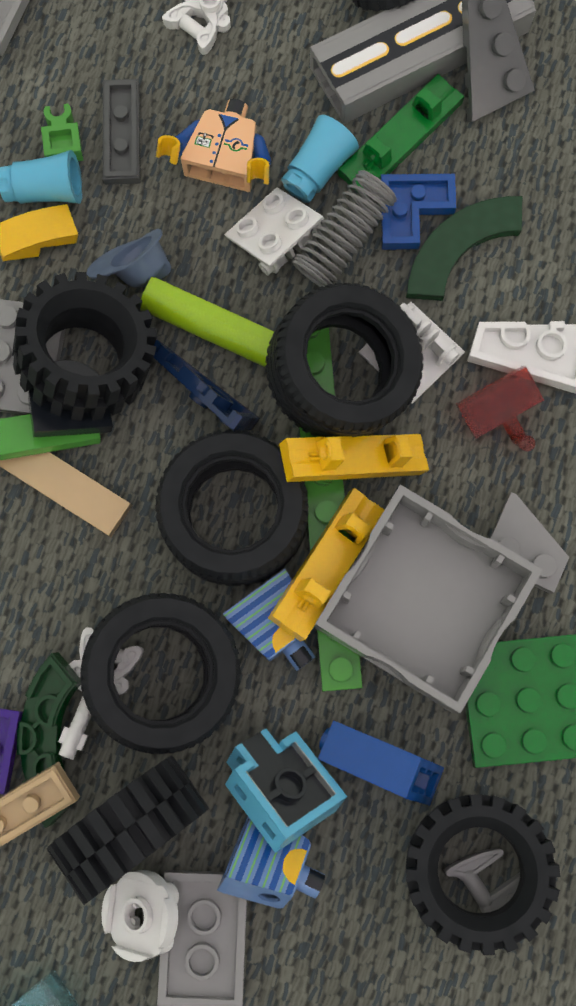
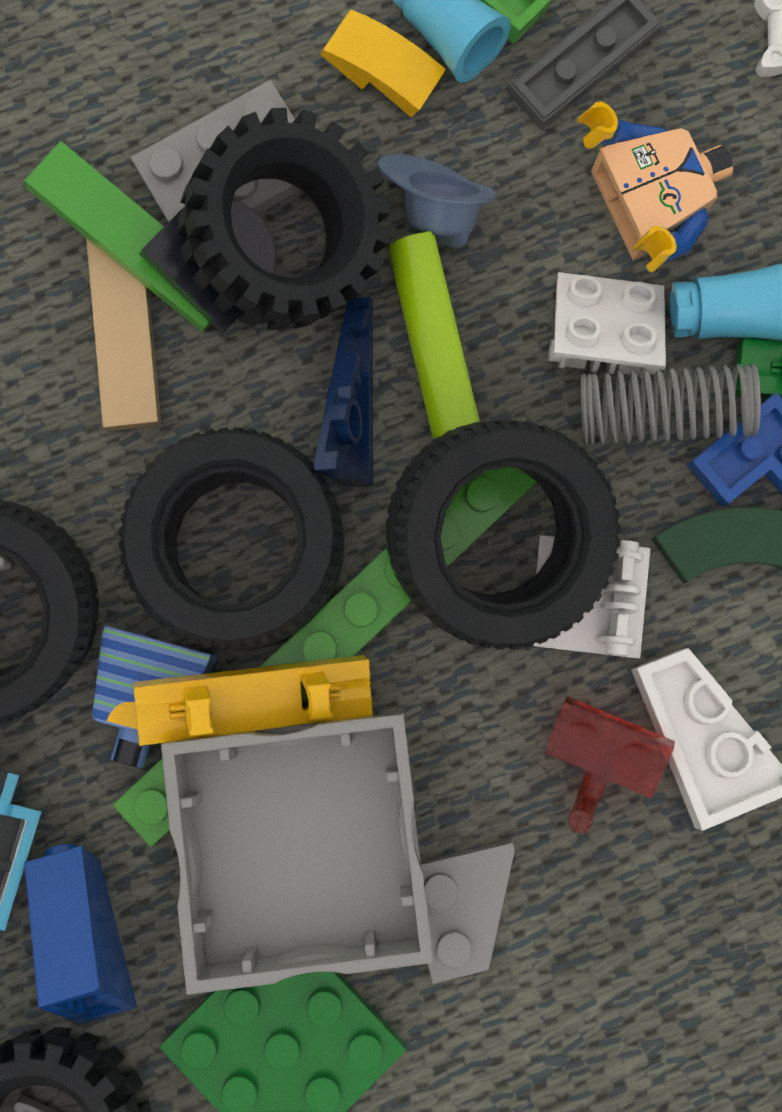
camera: 45 degrees right, 5 degrees up
(352, 457) = (398, 630): yellow hinge -> none

